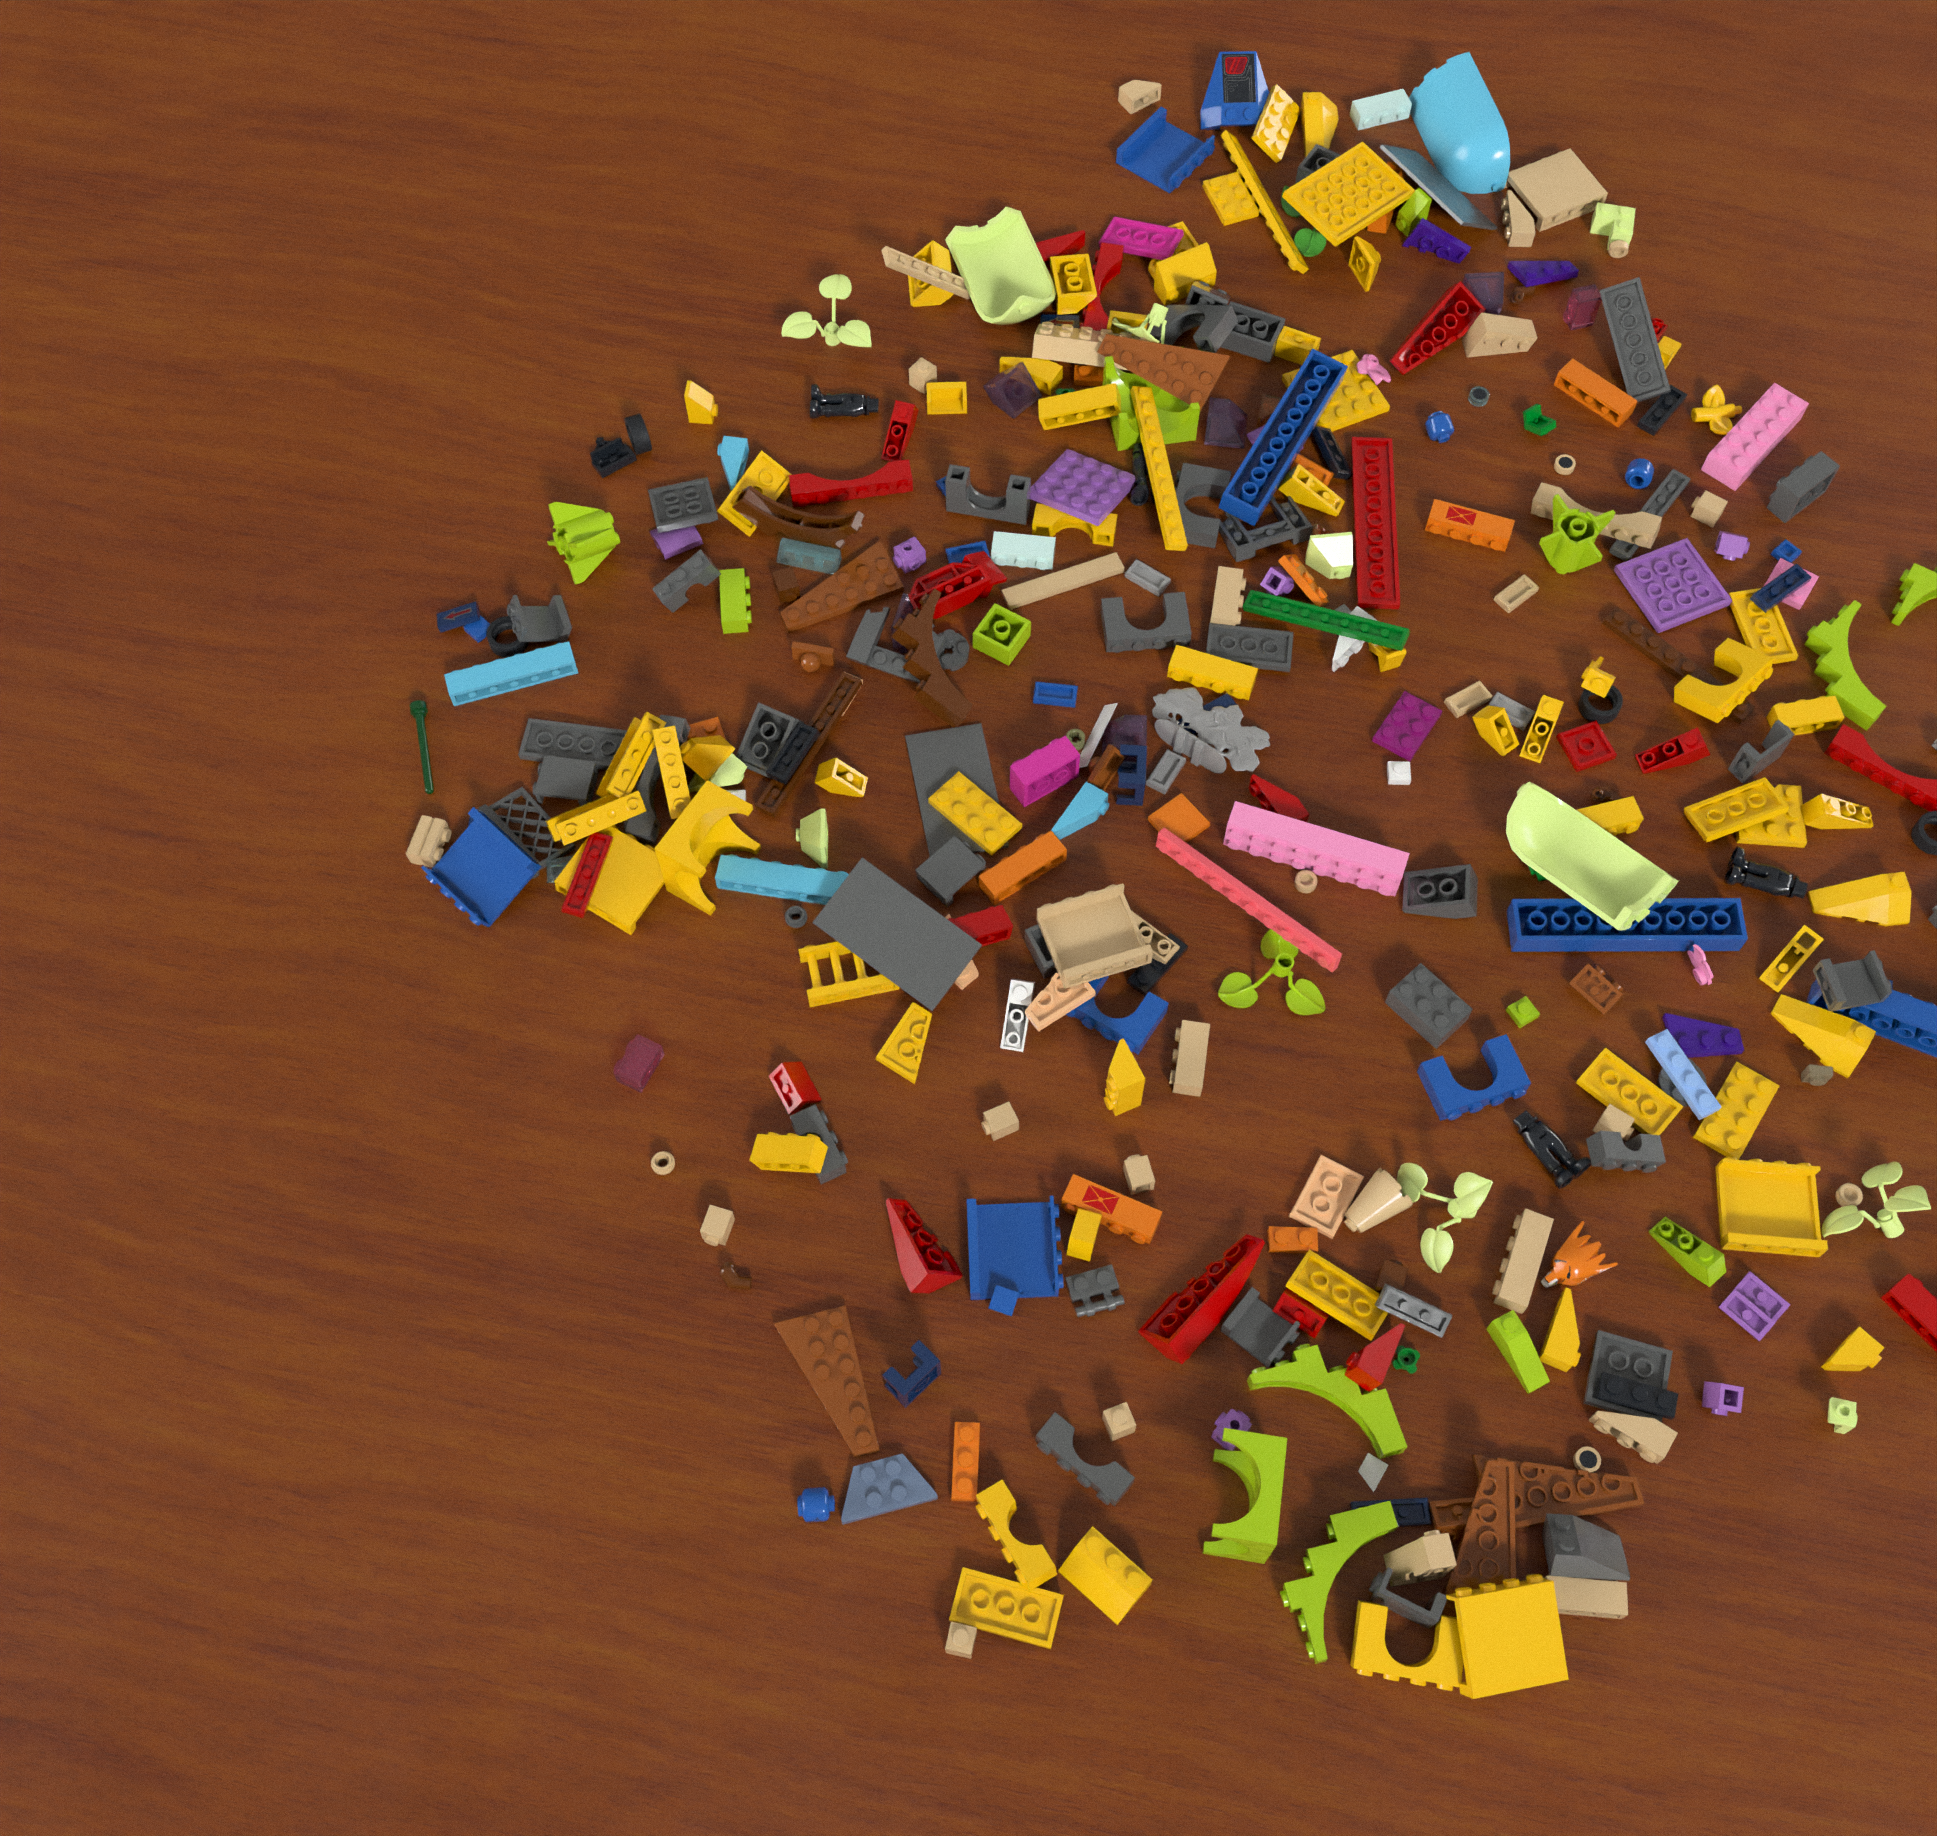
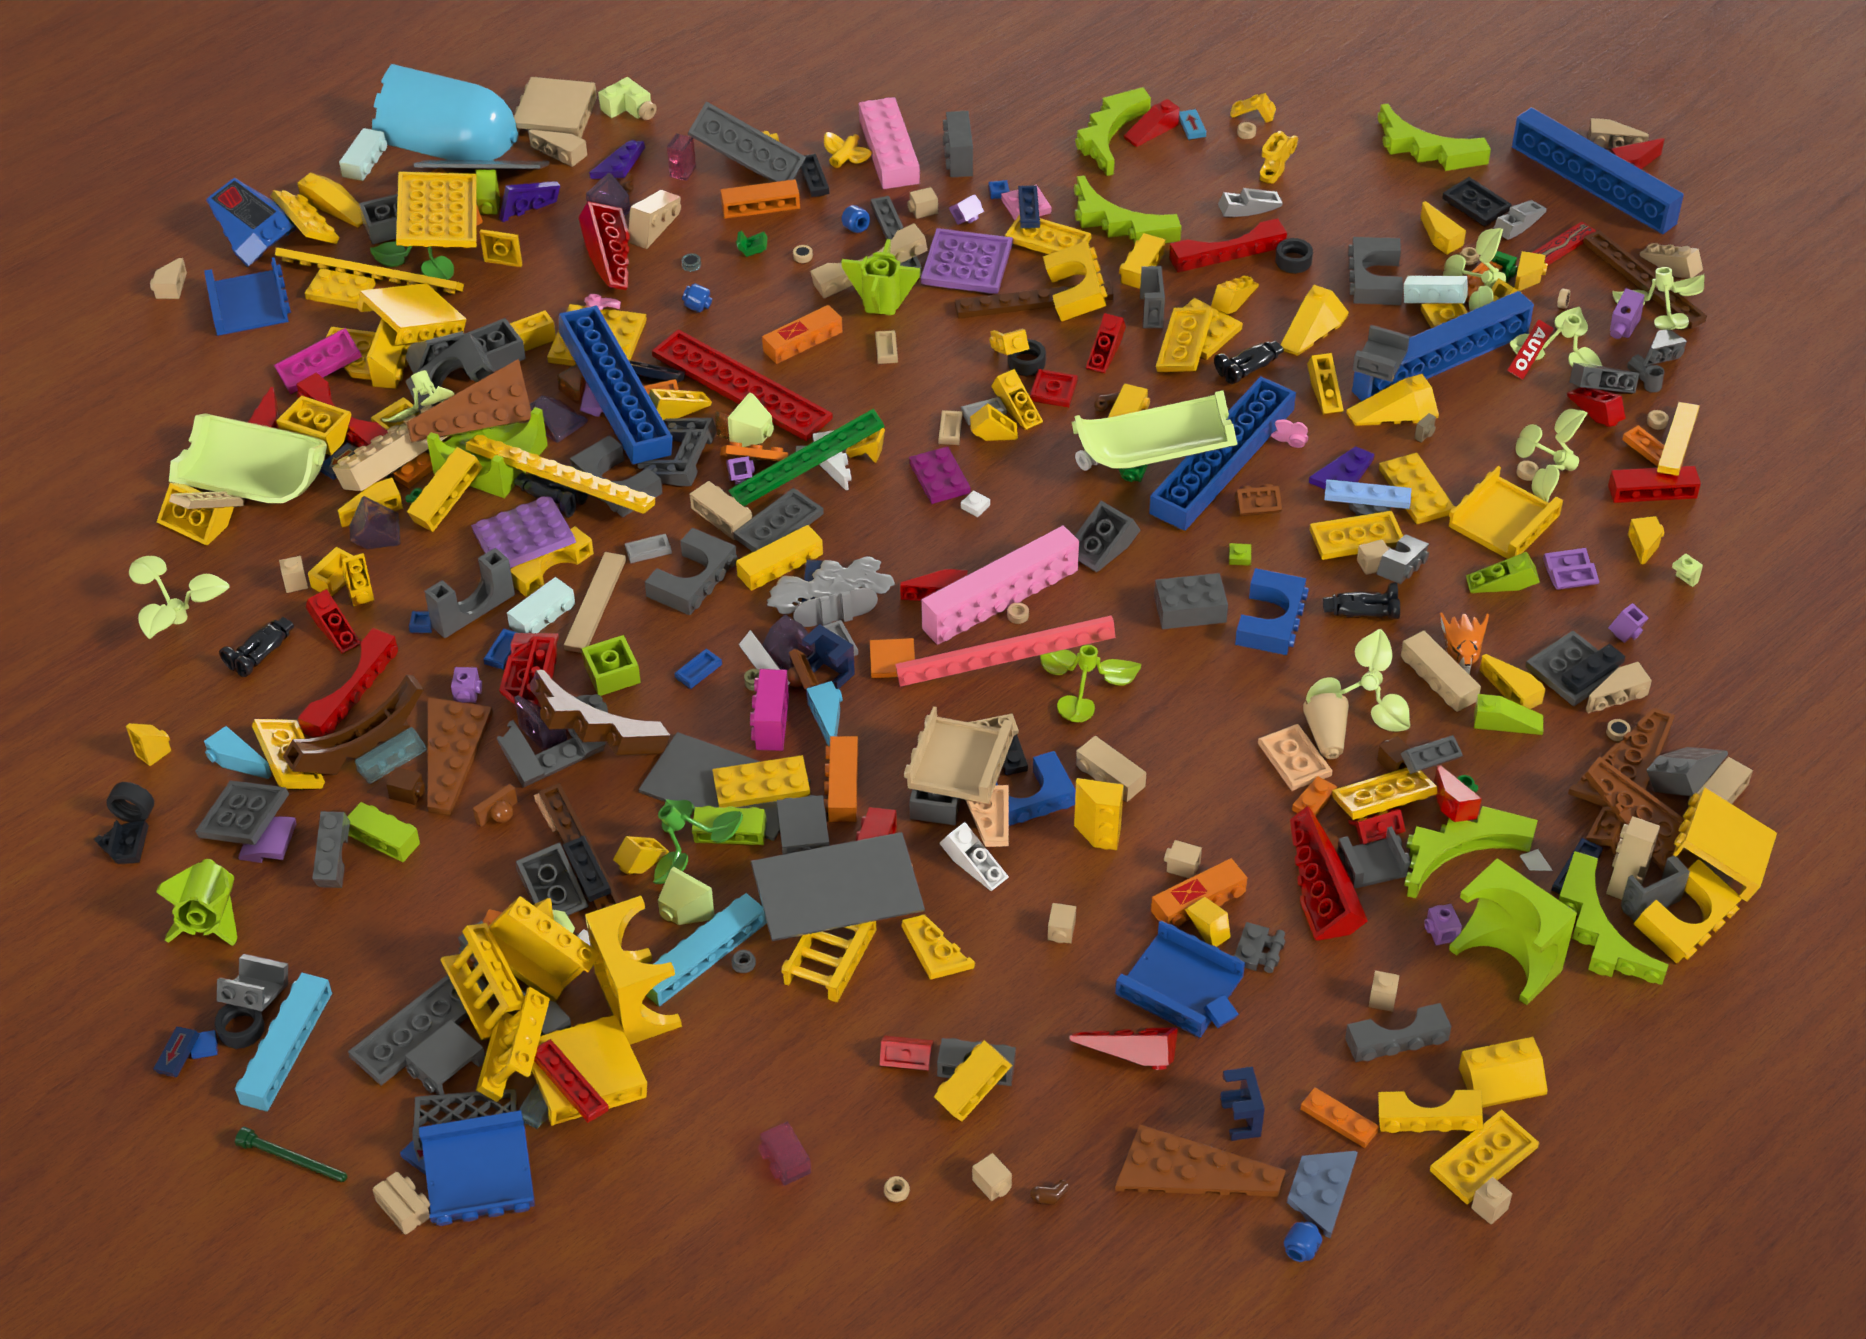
camera: 55 degrees left, 15 degrees down
(873, 779) = (673, 819): none -> bright green plant
(913, 819) = (751, 829): none -> lime brick
(944, 417) = (357, 579): none -> yellow slope
(1236, 259) = (413, 312): none -> yellow panel

